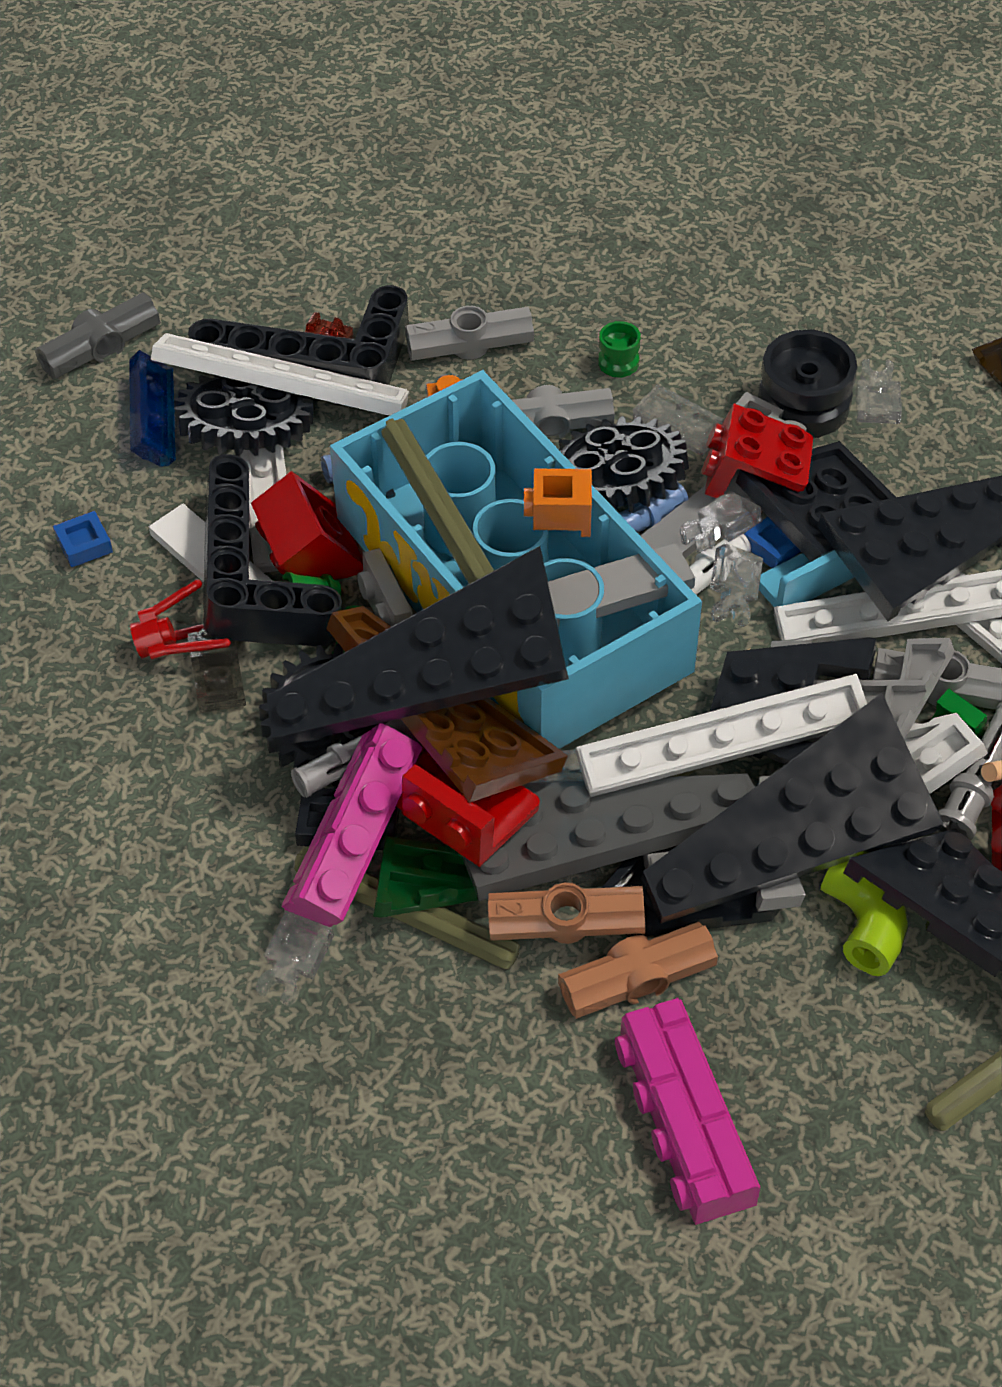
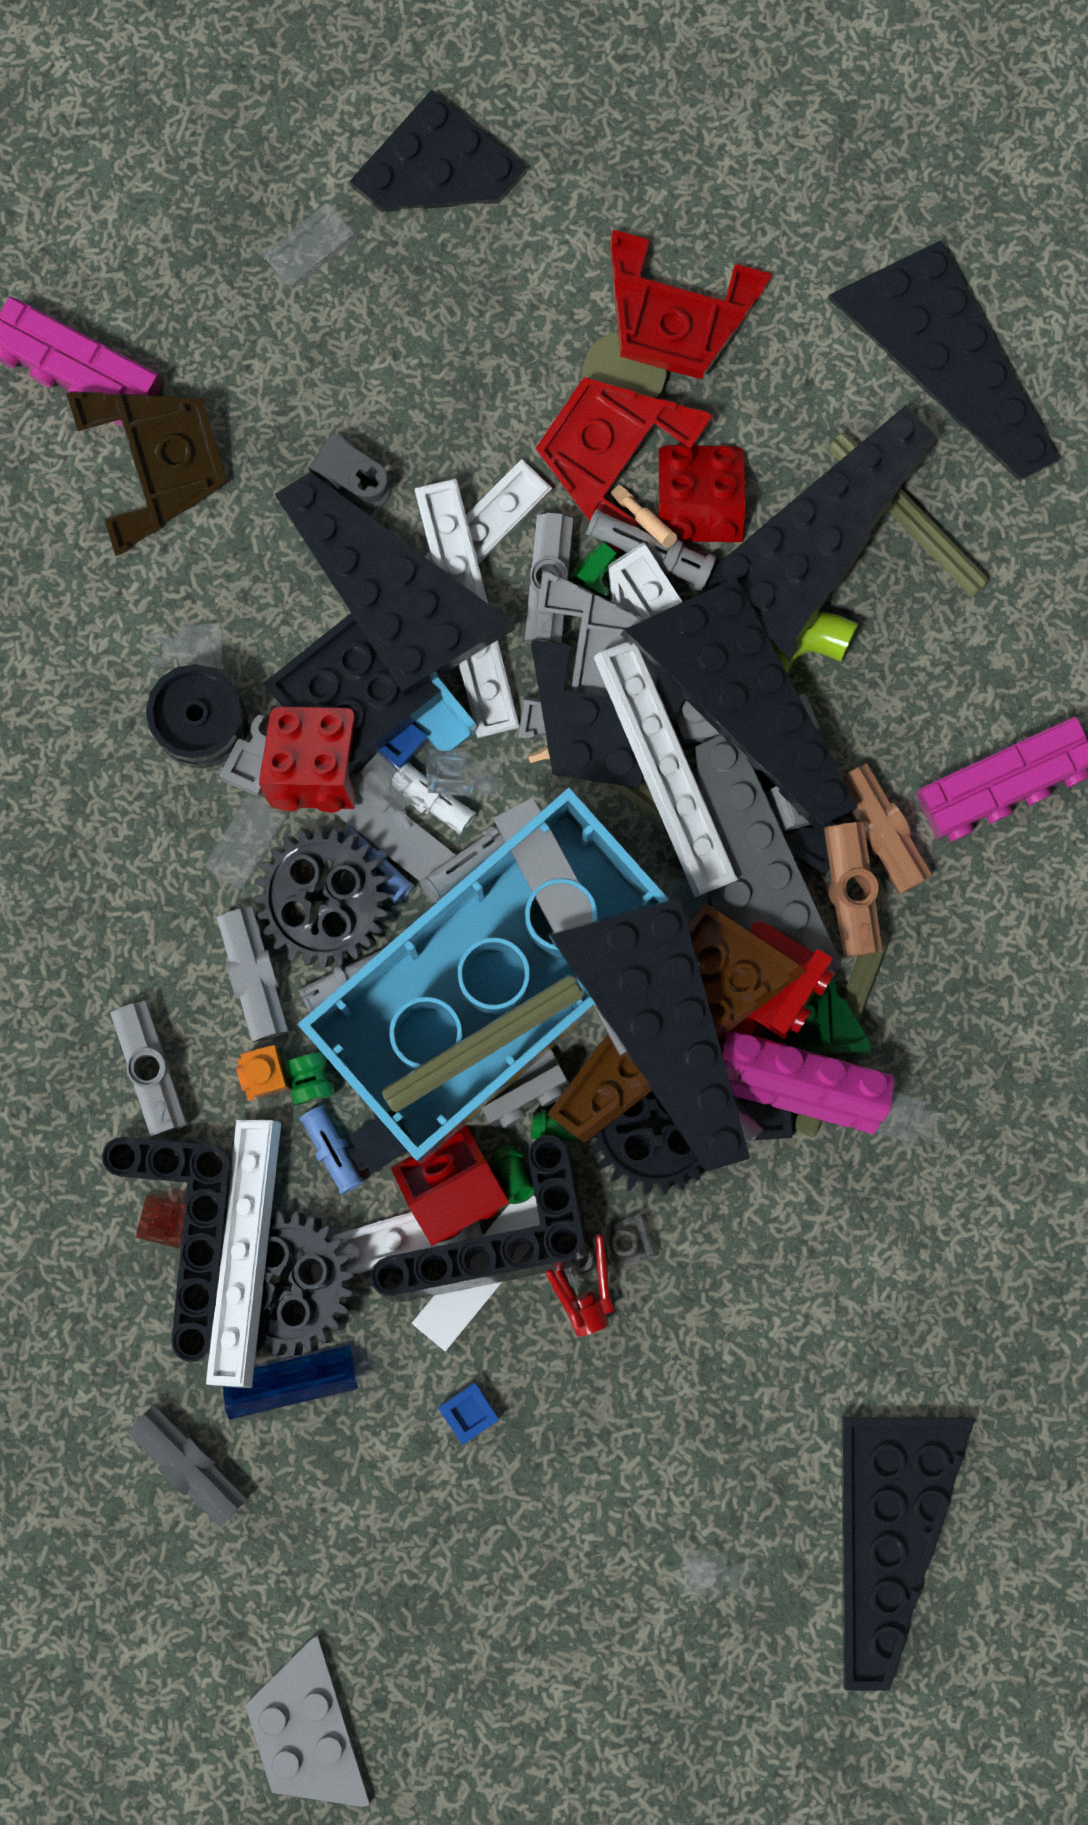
camera: 95 degrees left, 30 degrees up
(560, 500) = (481, 907): orange brick -> none
(619, 349) = (150, 908): green wheel -> none

